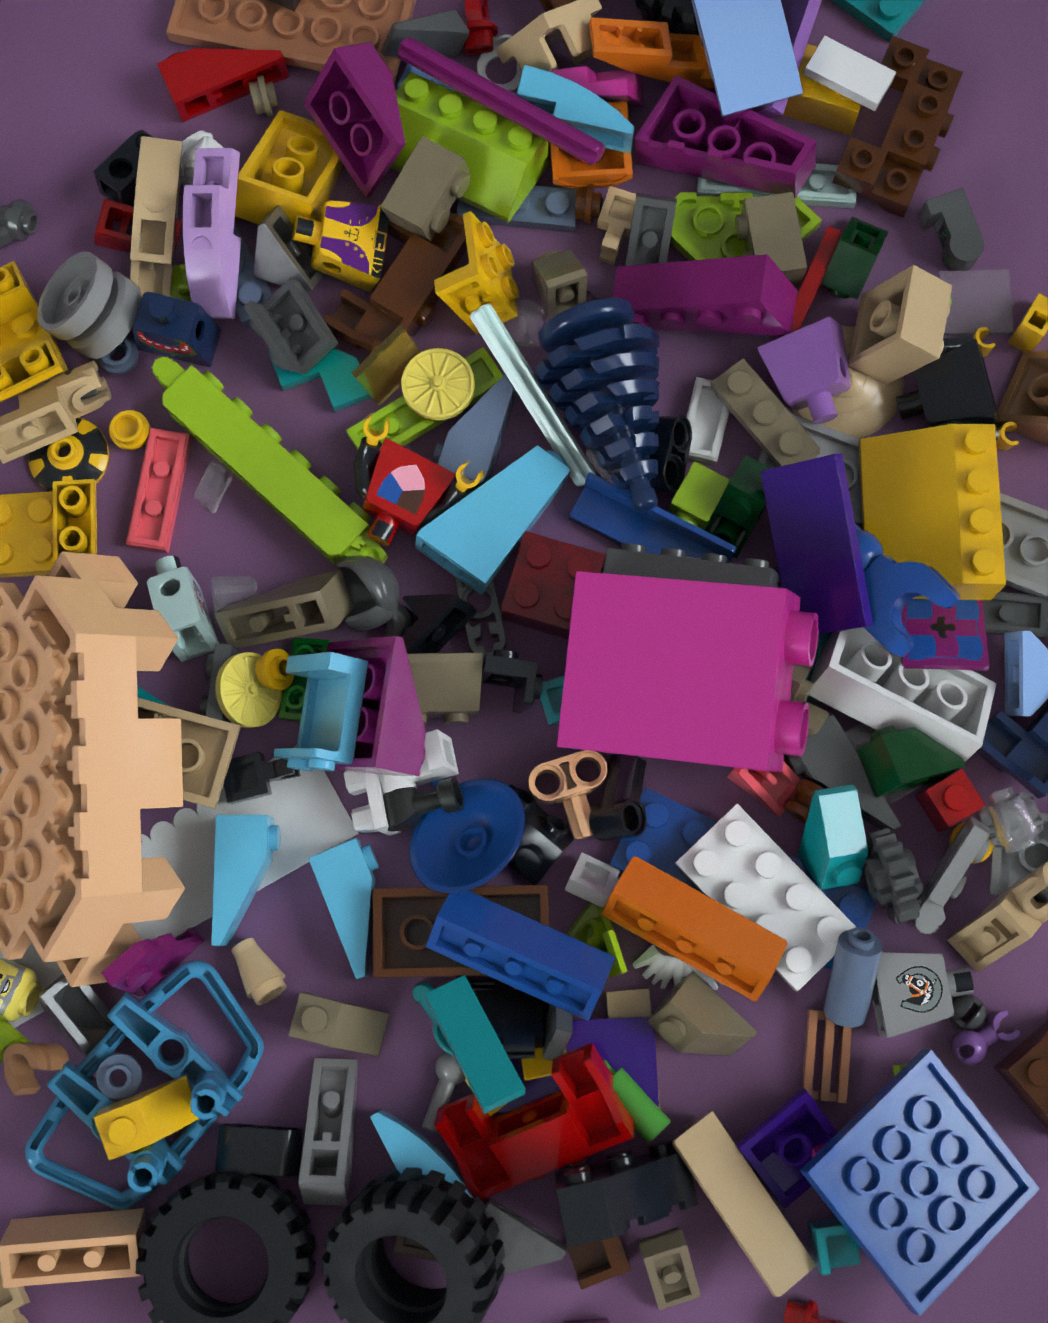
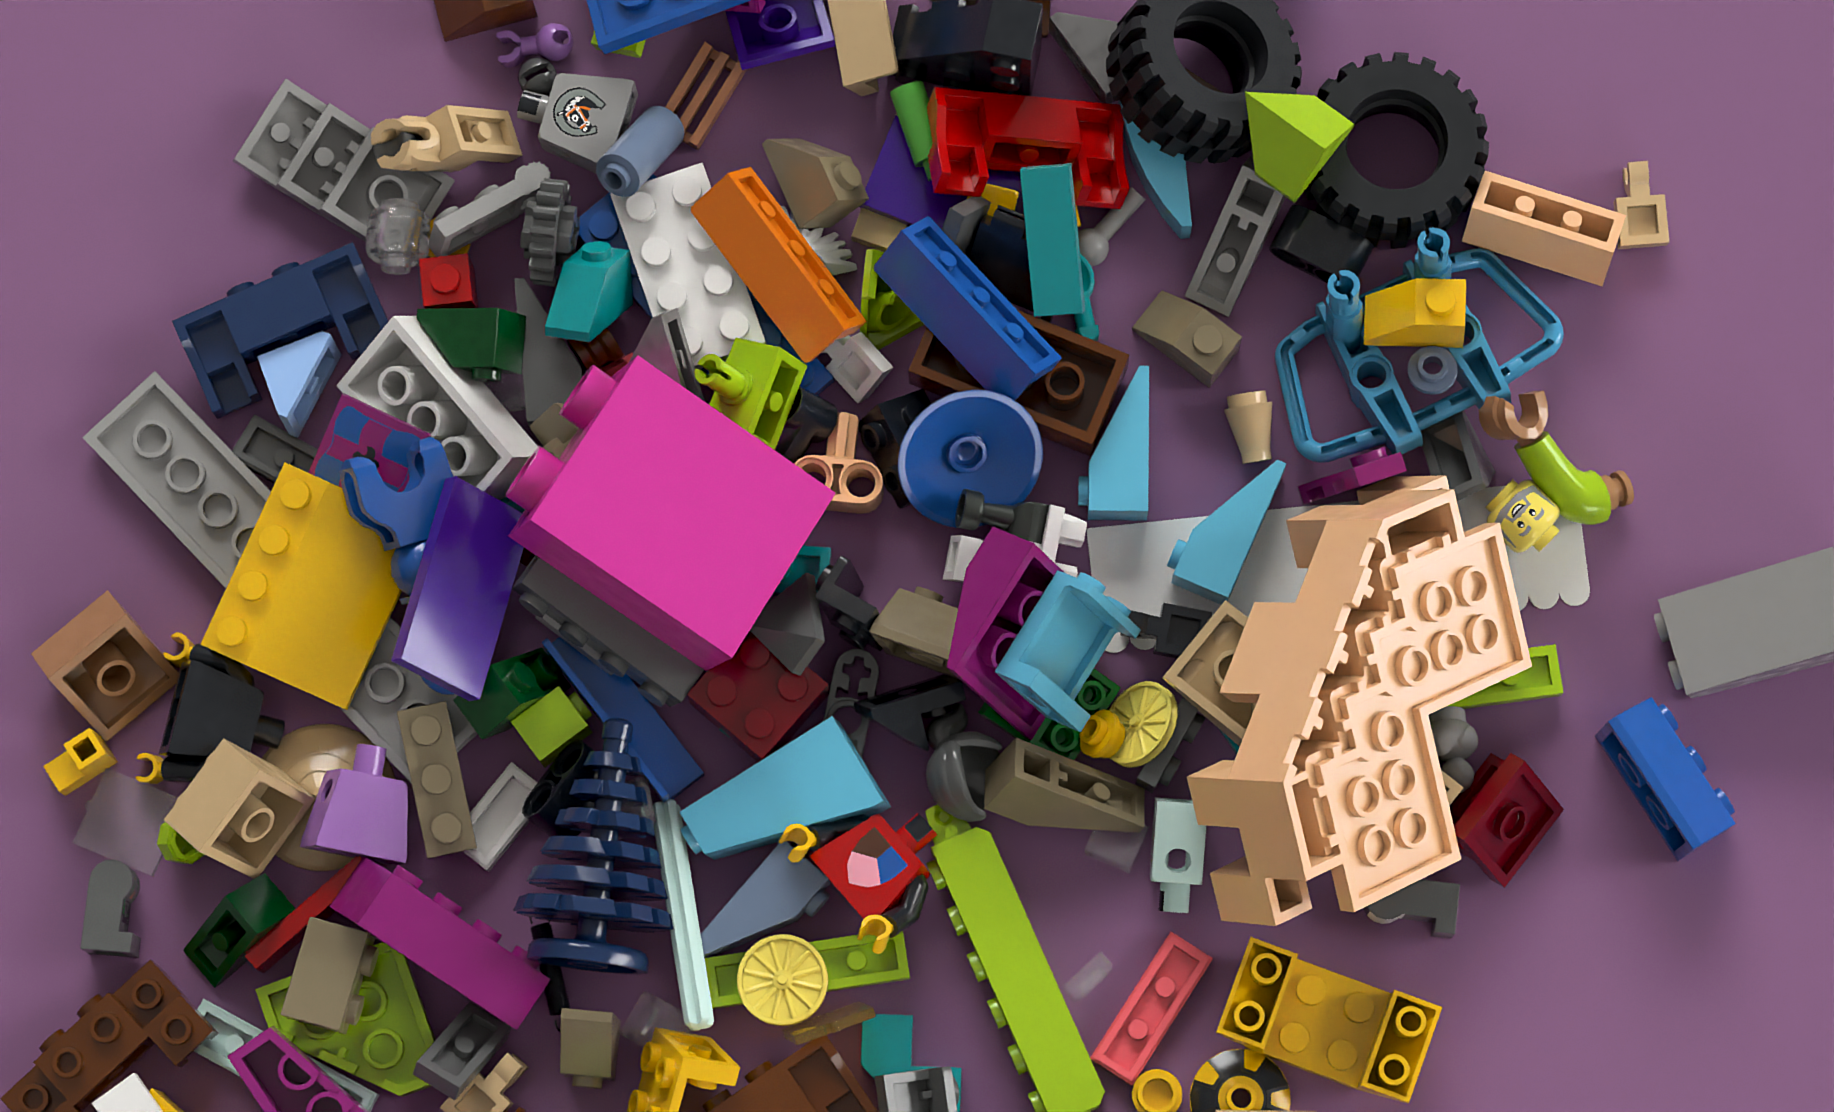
camera: 155 degrees left, 0 degrees up
(305, 1225) = (1292, 138): none -> lime slope
(546, 639) = (792, 625): none -> dark grey slope
(665, 808) = (754, 386): none -> lime brick
(743, 799) = (667, 350): none -> flat silver slope

